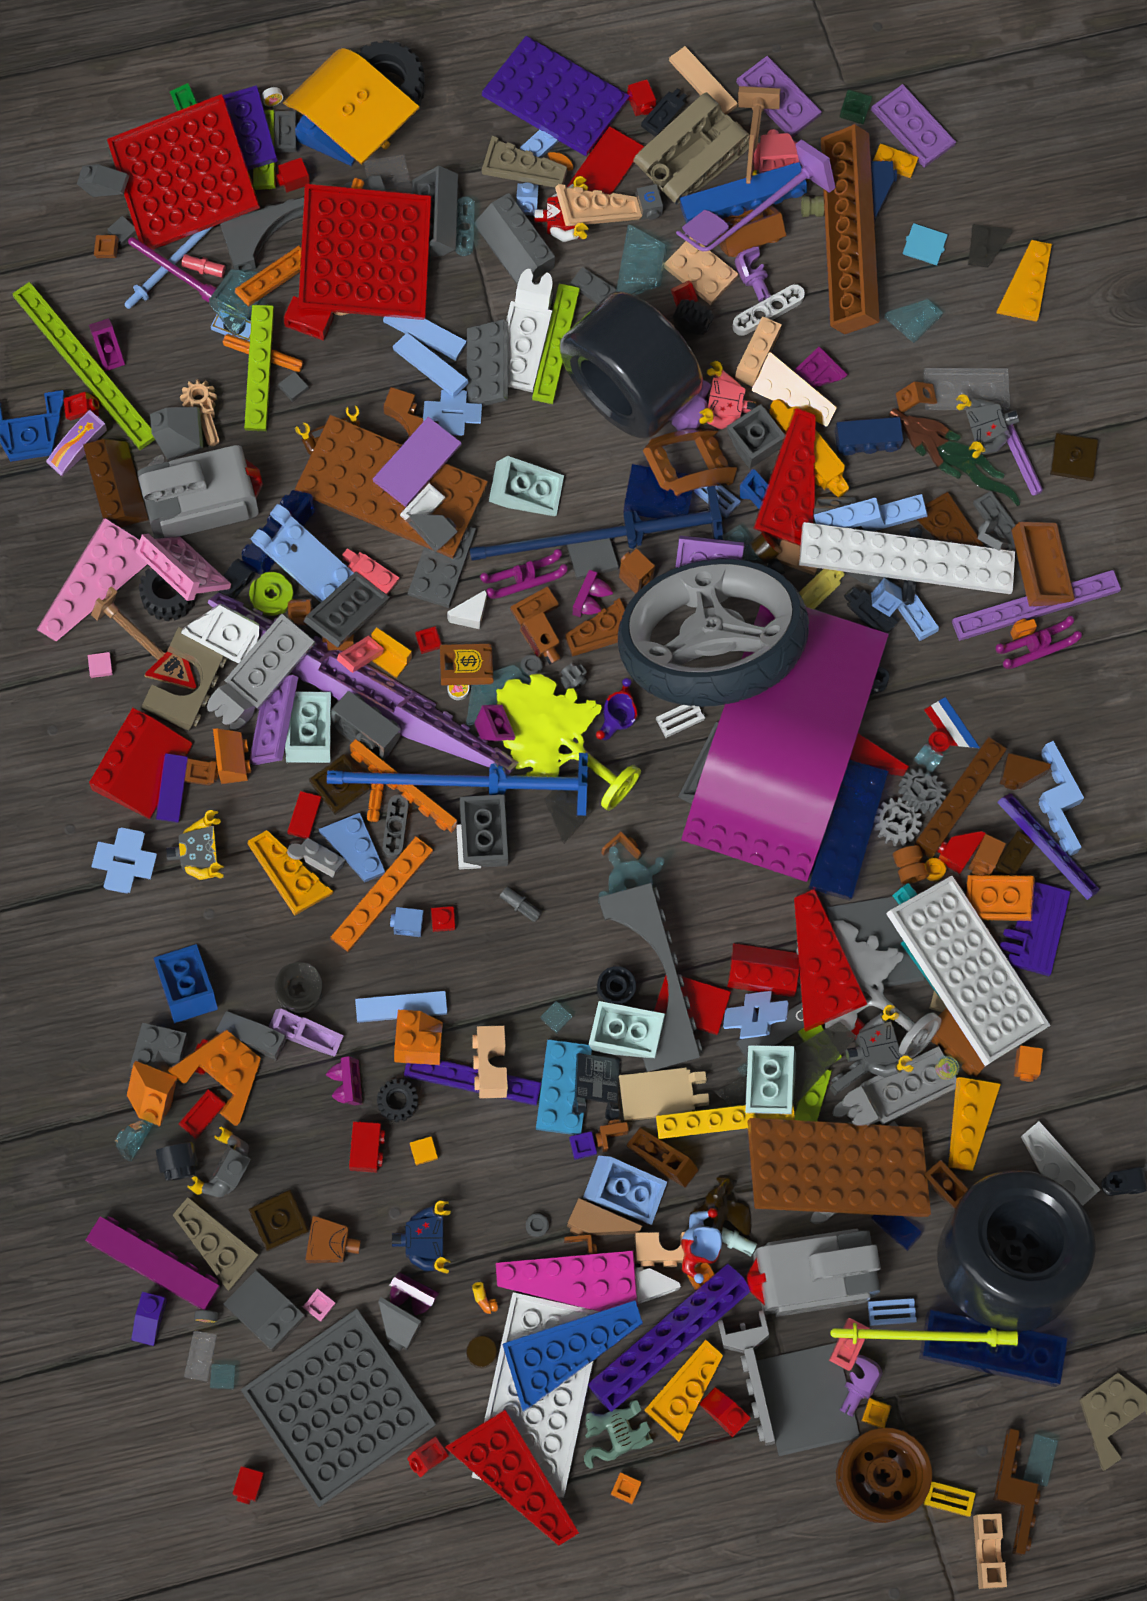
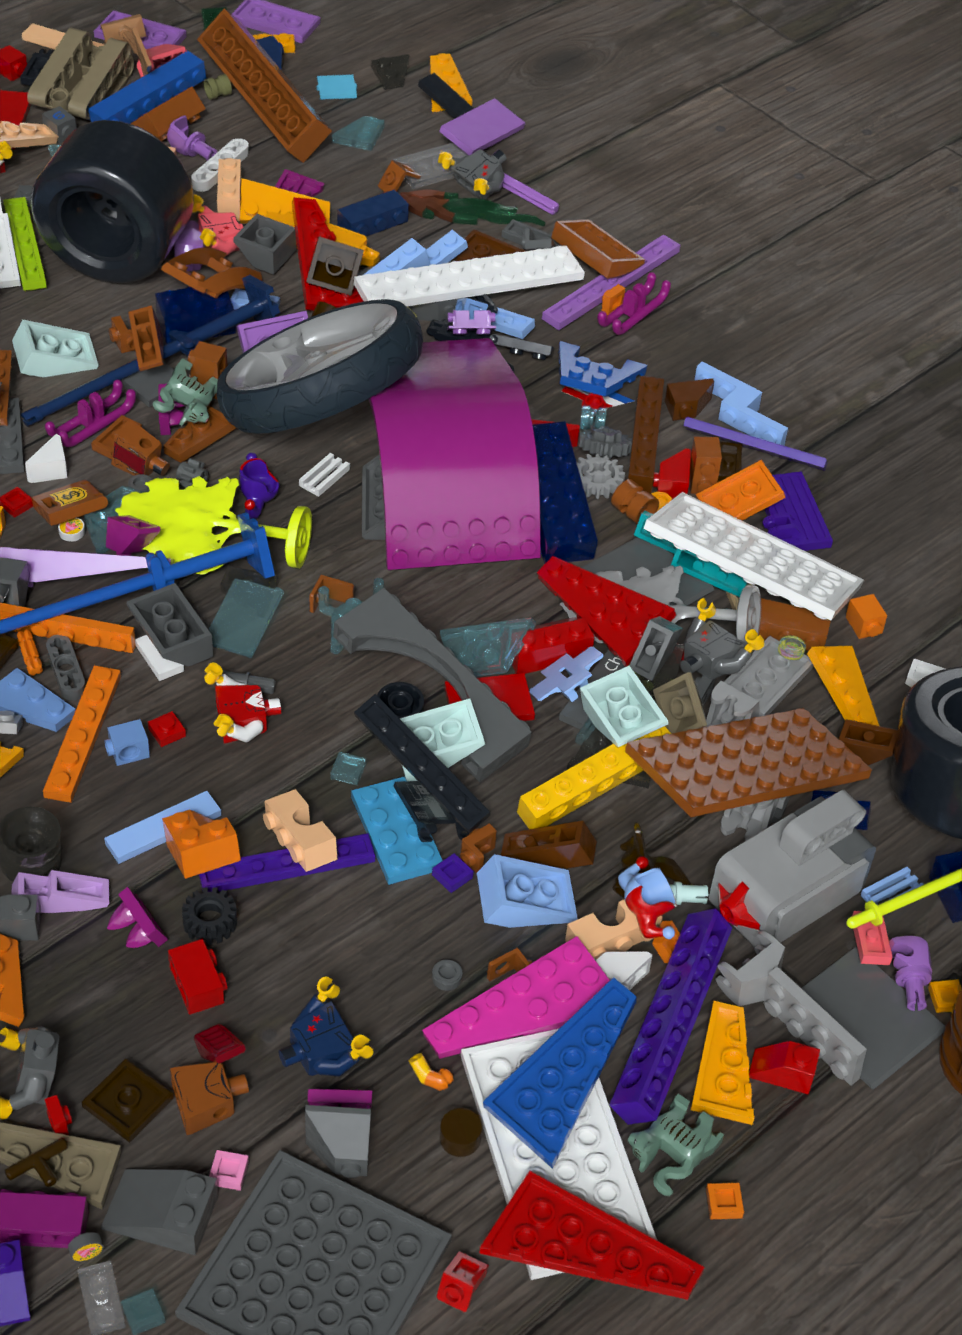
camera: 25 degrees left, 25 degrees down
(200, 1242) = (38, 1161): none -> dark brown piece
(229, 1213) = (58, 1115): none -> red plate
(352, 1211) = (218, 1044): none -> dark red slope
(423, 1151) = (268, 955): light orange tile -> none
(501, 929) = (239, 707): none -> torso
(546, 840) = (244, 617): none -> clear light blue piece
(590, 501) = (121, 335): none -> dark orange bracket
(595, 1221) = (526, 933): medium nougat slope -> none
(598, 524) = (147, 338): none -> dark orange slope
(599, 1054) = (422, 763): none -> black plate
(607, 592) = (187, 392): none -> sand green animal
(660, 1093) = (502, 787): tan tile -> none
(708, 226) = (204, 43): medium lavender piece -> none
(708, 958) = (488, 646): none -> clear light blue wing
(753, 488) = (287, 278): blue slope -> none
(795, 498) = (334, 265): none -> dark brown slope
(820, 1092) = (681, 704): none -> dark tan slope
(829, 1031) = (655, 647): none -> dark grey slope
(888, 618) = (480, 323): none -> hinge
(913, 648) = (519, 346): none -> hinge
(952, 711) = (592, 376): none -> wing
(1016, 320) = (444, 95): none -> black tile
(1025, 363) = (482, 127): none -> medium lavender tile
(1074, 457) = (570, 178): dark brown plate -> none

